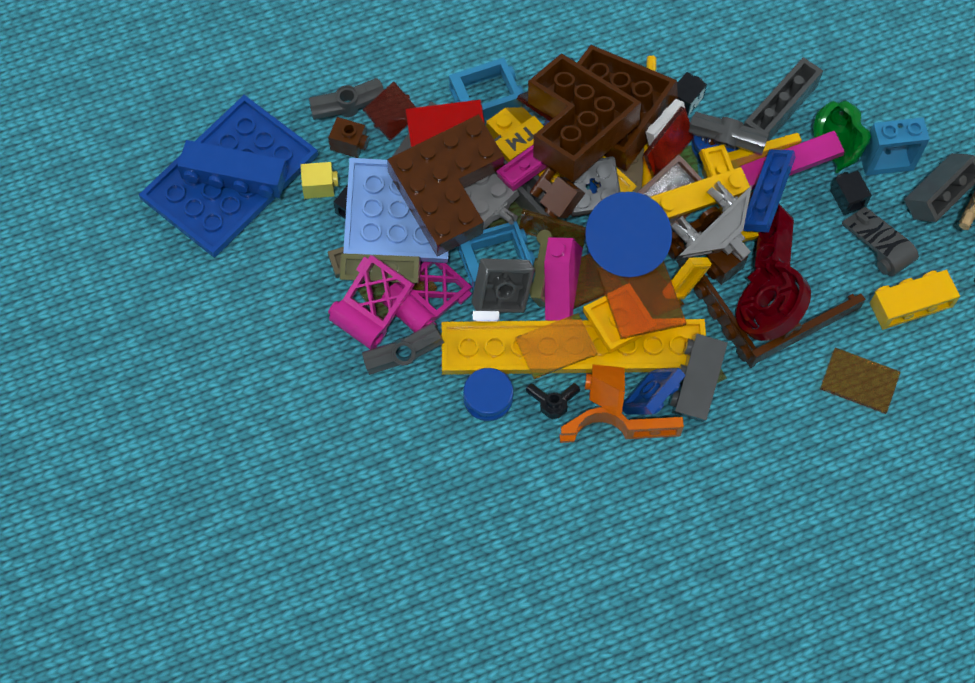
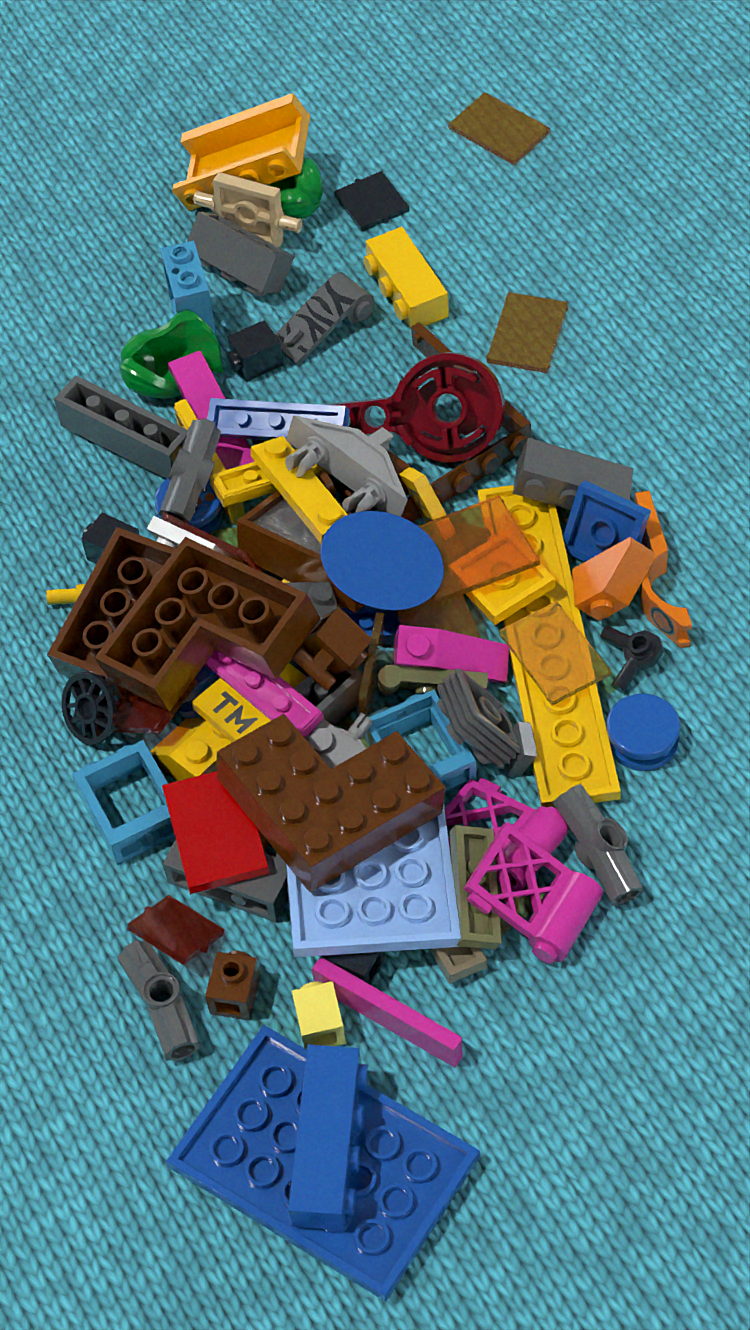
camera: 90 degrees left, 10 degrees down
(309, 219) = (390, 1013): none -> dark pink tile

